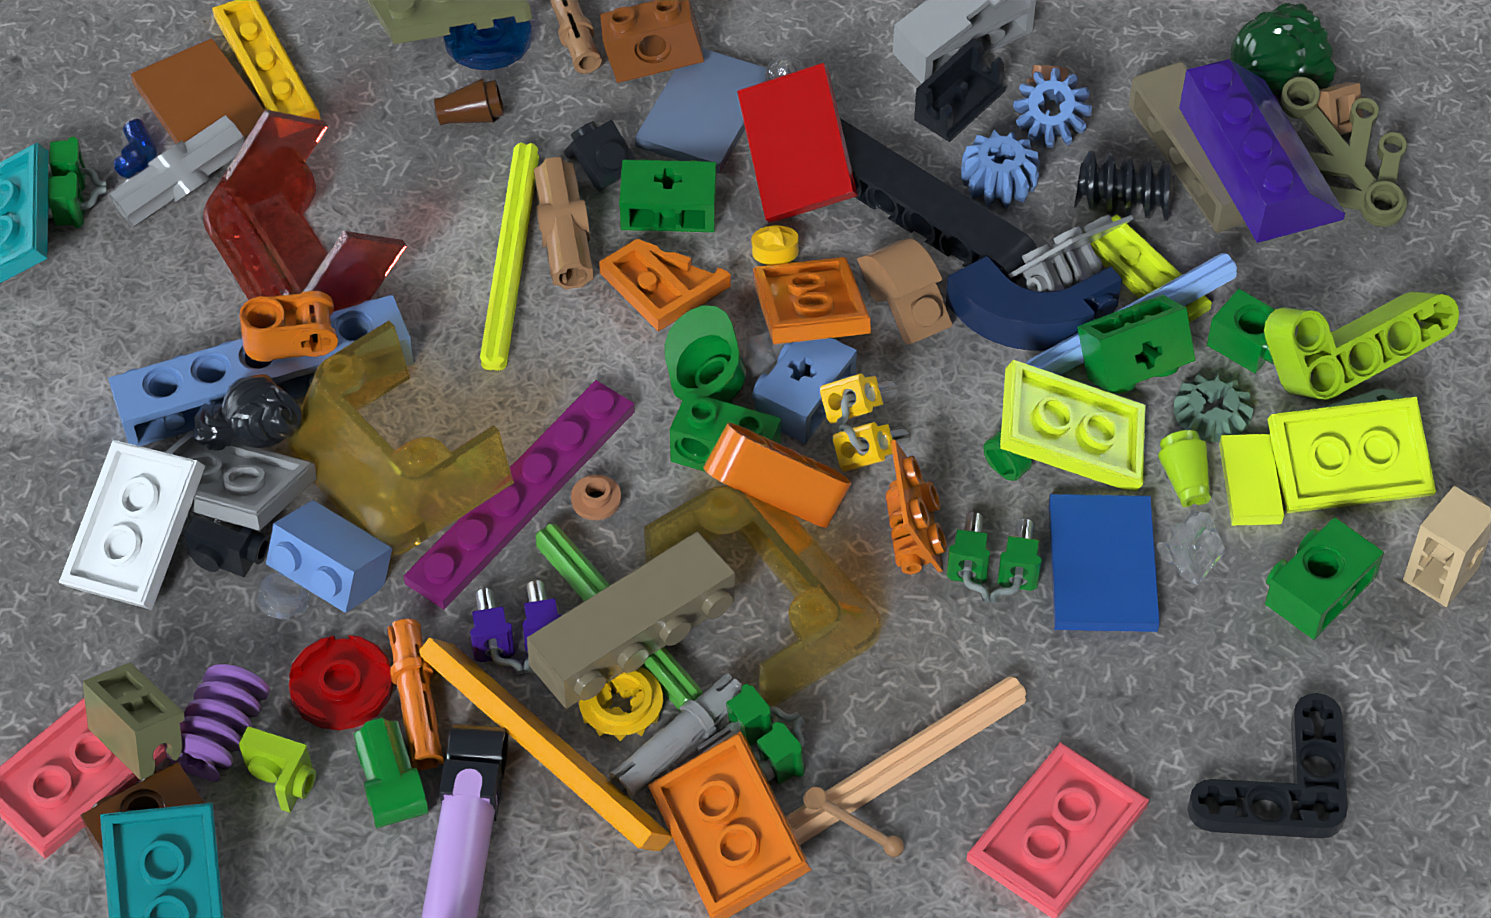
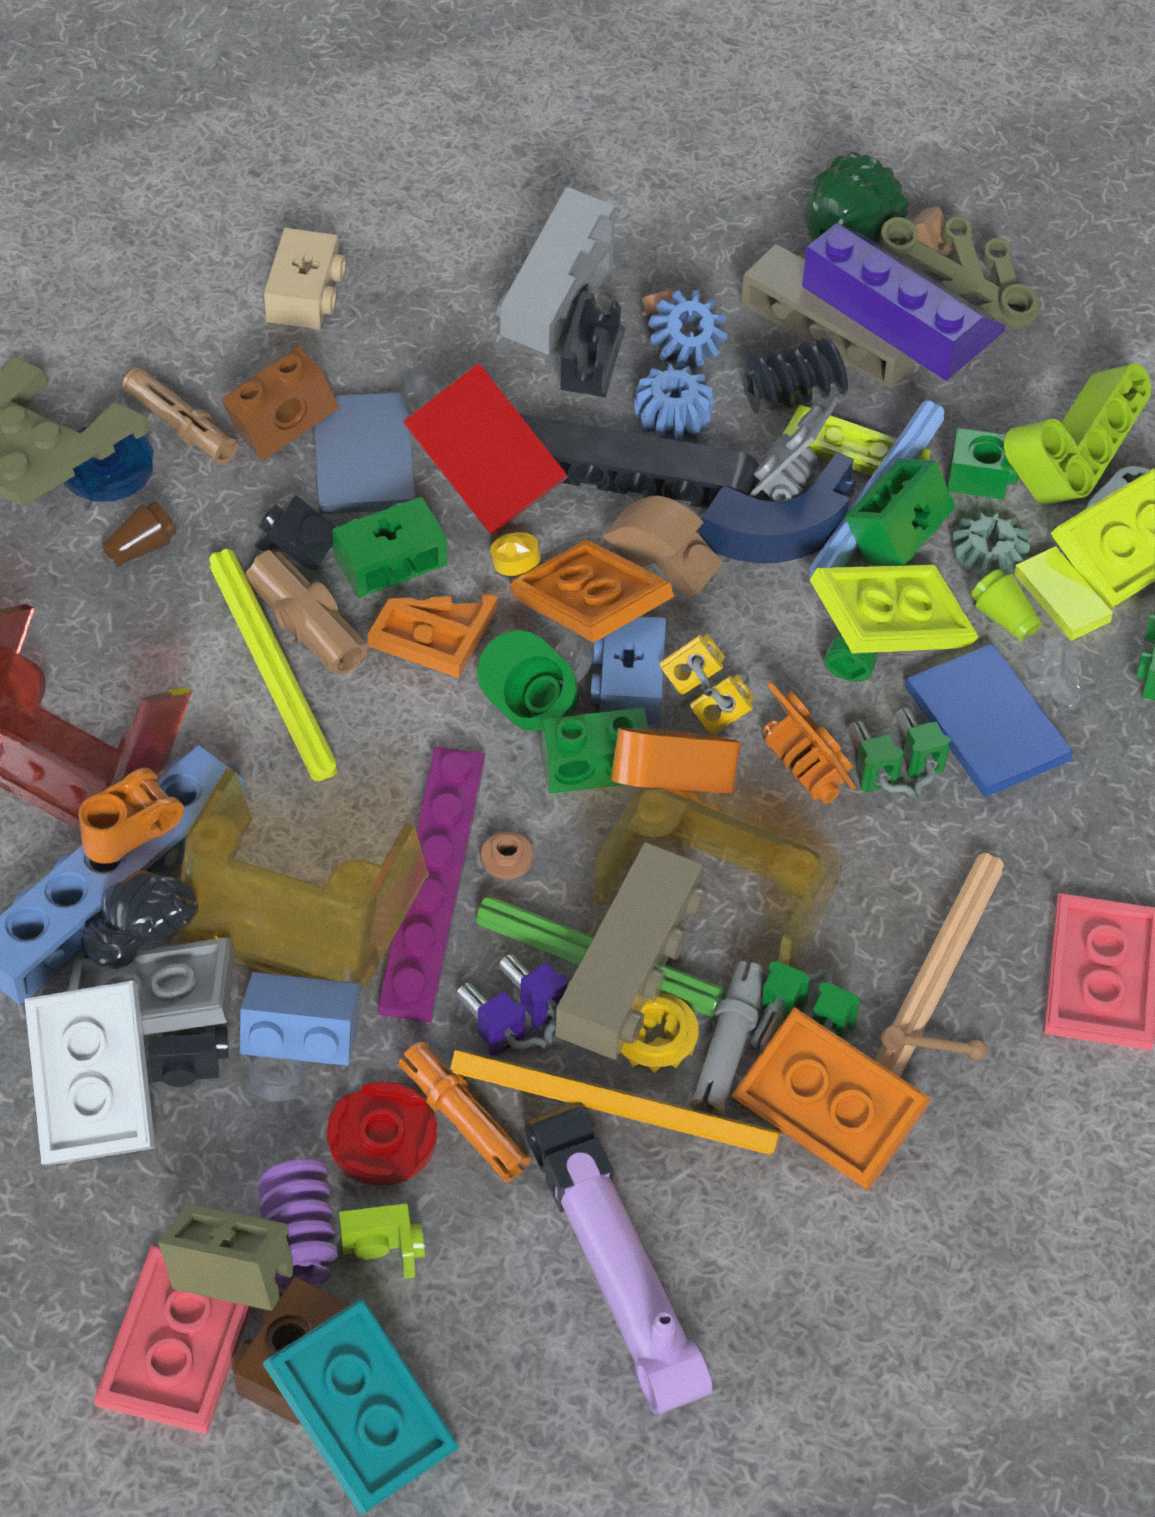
camera: 30 degrees left, 0 degrees up
(390, 782) = (499, 1204): green piece -> none

